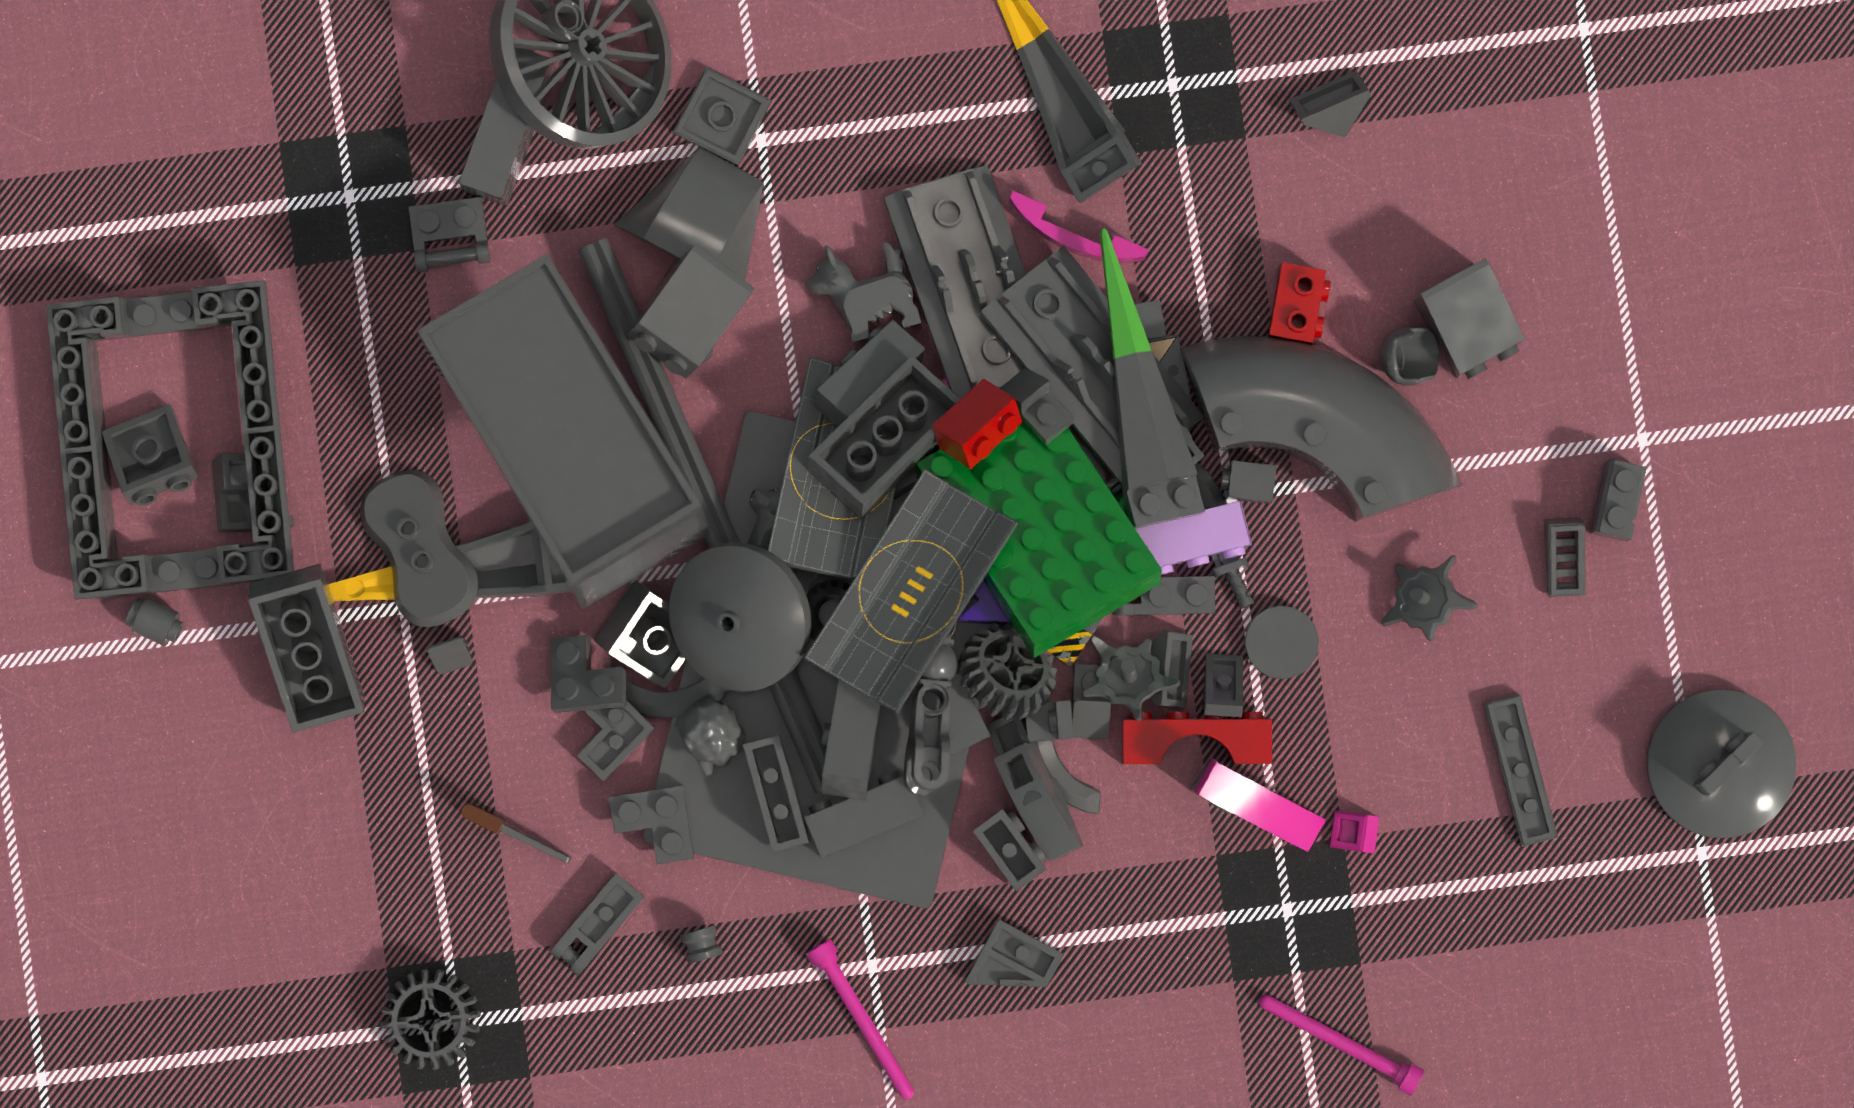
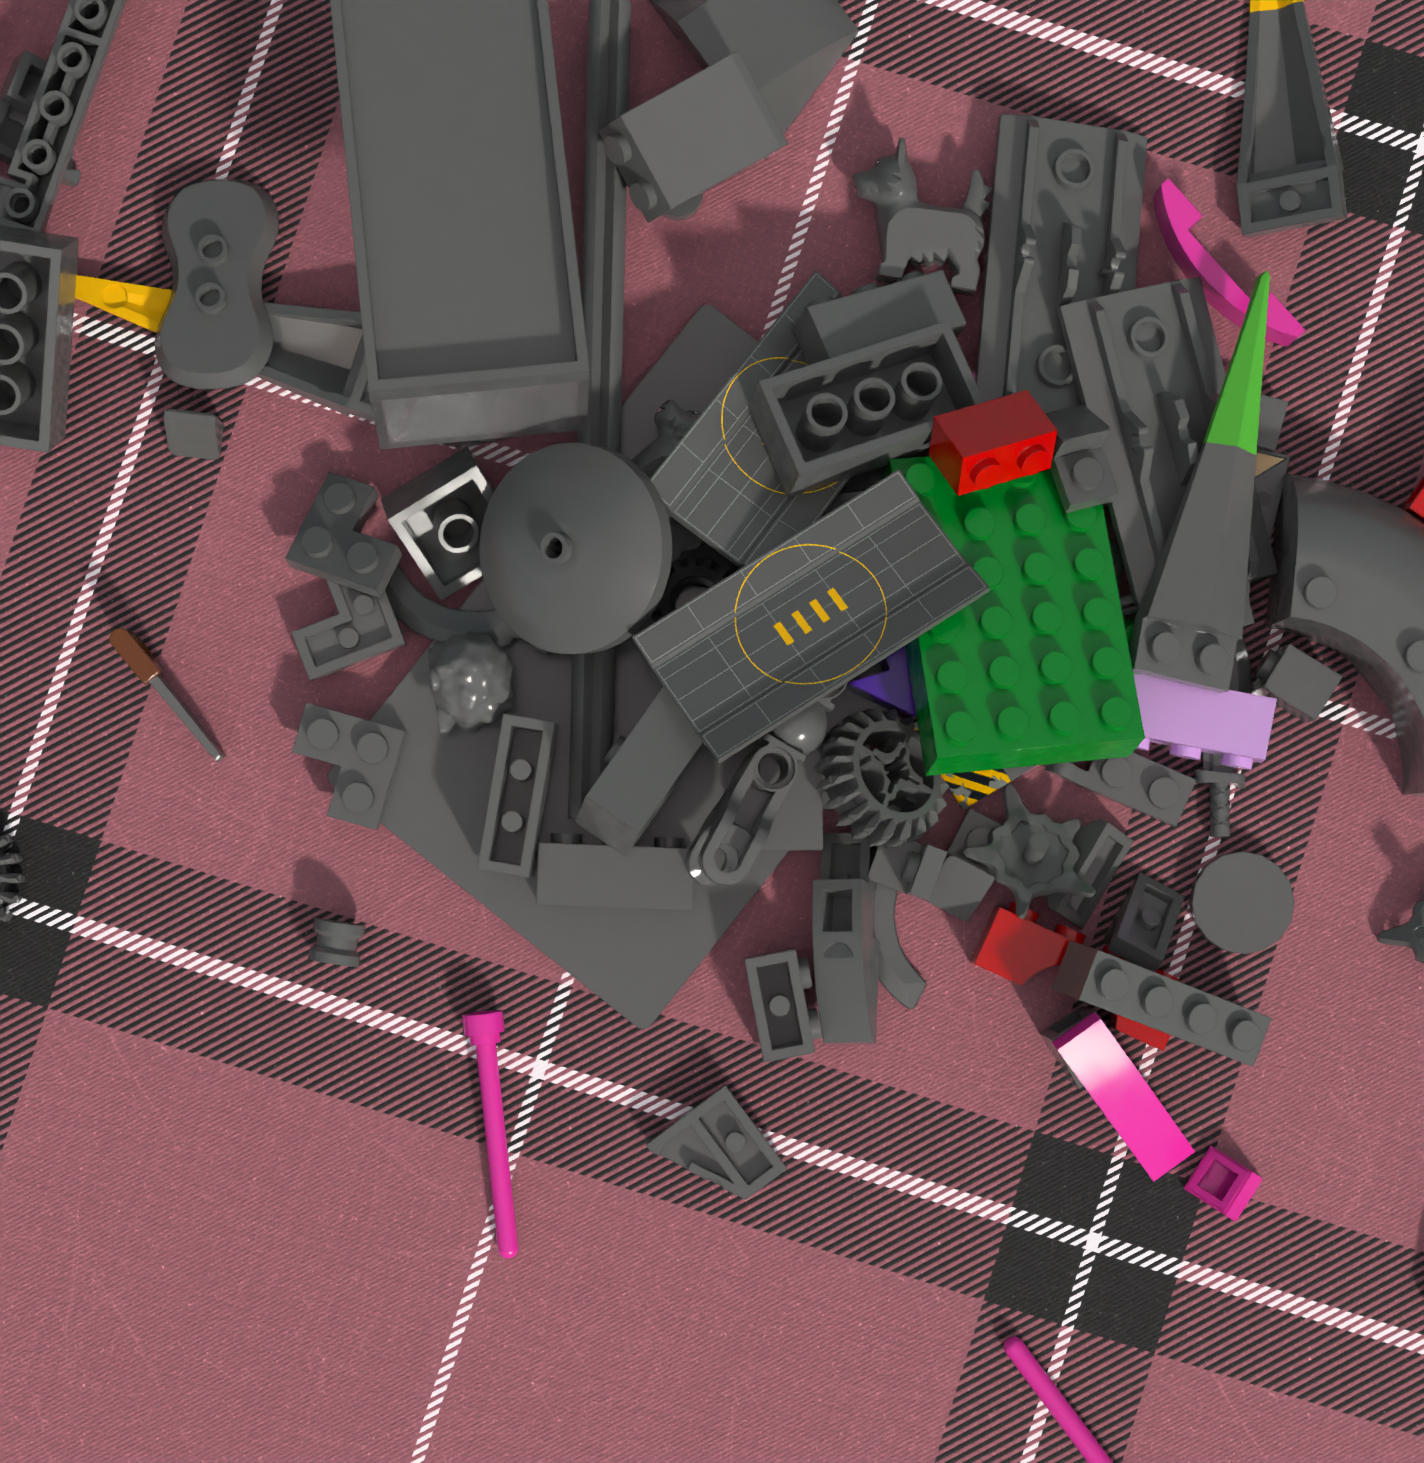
camera: 20 degrees right, 0 degrees up
(598, 923) = (220, 855): dark grey plate -> none
(1255, 733) = (1161, 1003): none -> dark grey arch

